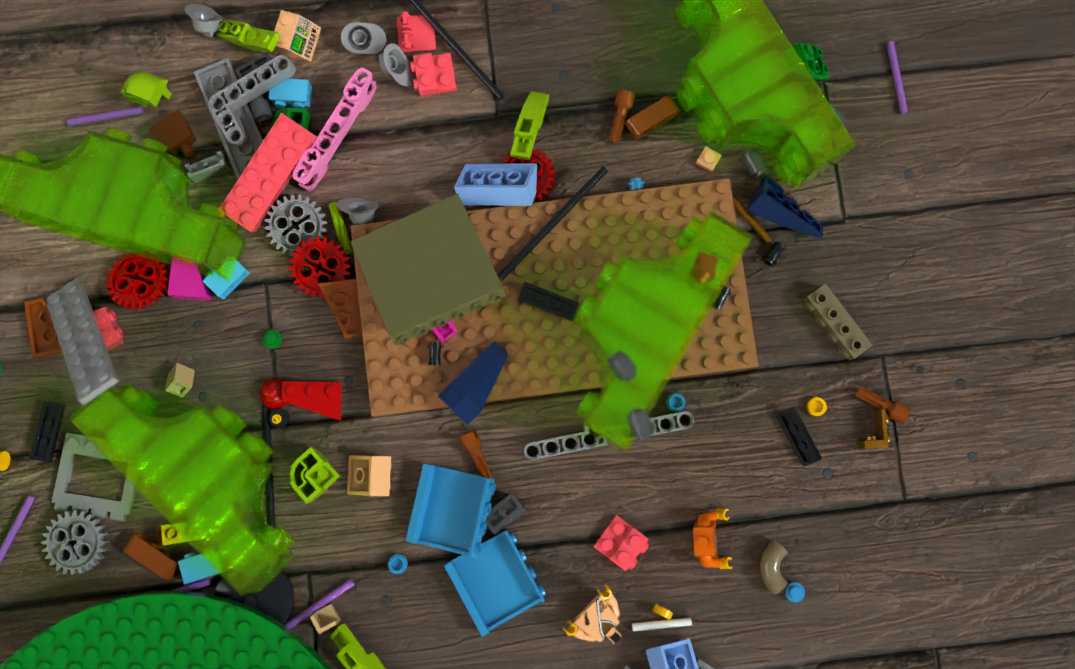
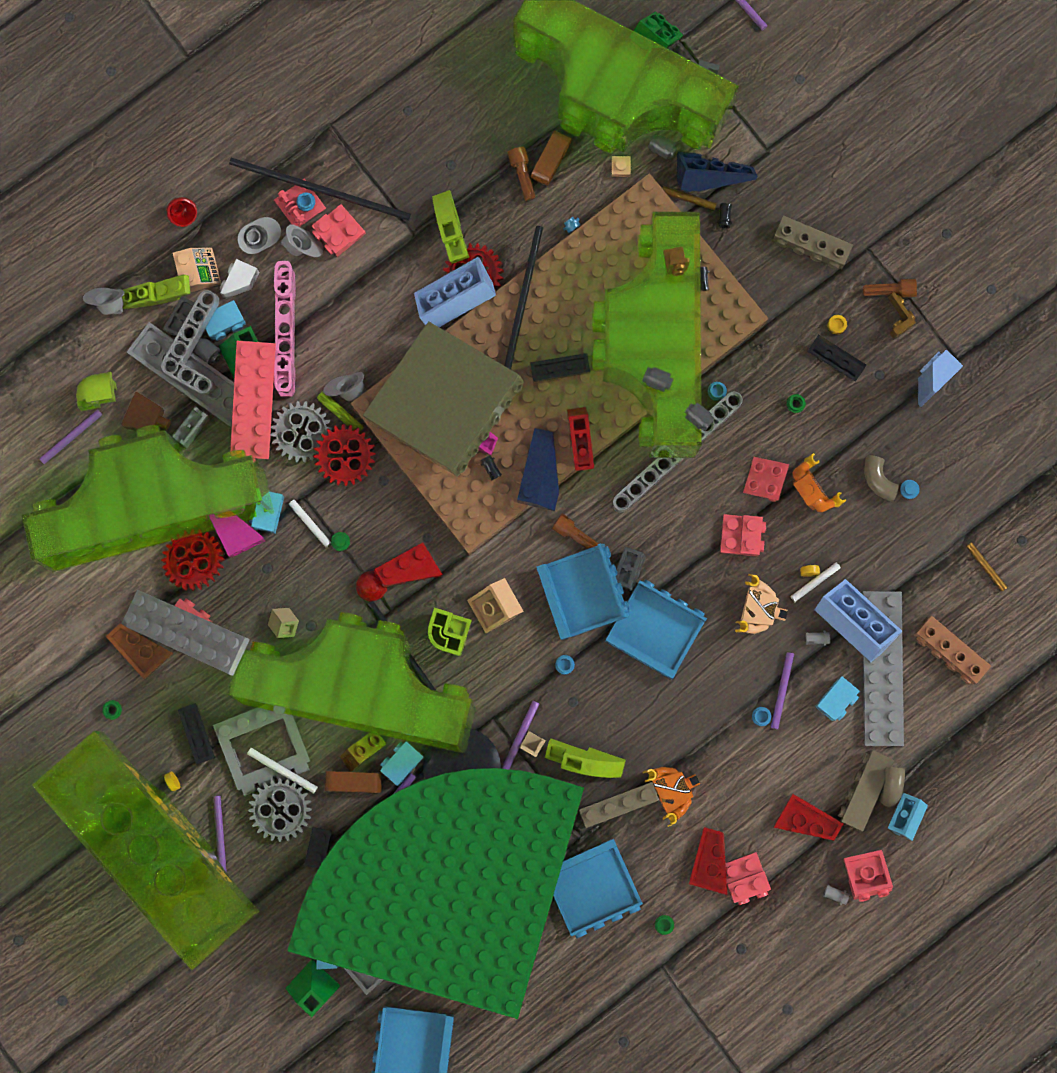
camera: 30 degrees left, 0 degrees up
(88, 594) = (317, 847): none -> black plate
(98, 508) = (282, 770): none -> white bar
(256, 308) = (310, 524): none -> white bar
(279, 418) = (388, 604): black tile -> none
(325, 66) = (240, 279): none -> white slope
(344, 304) = (387, 475): dark orange wing -> none
(421, 33) = (305, 201): none -> dark azure plate
(528, 374) = (580, 438): none -> red slope
(672, 506) = (766, 478): none -> coral hinge
(744, 454) = (796, 397): none -> green plate
(880, 509) = (936, 374): none -> light blue slope

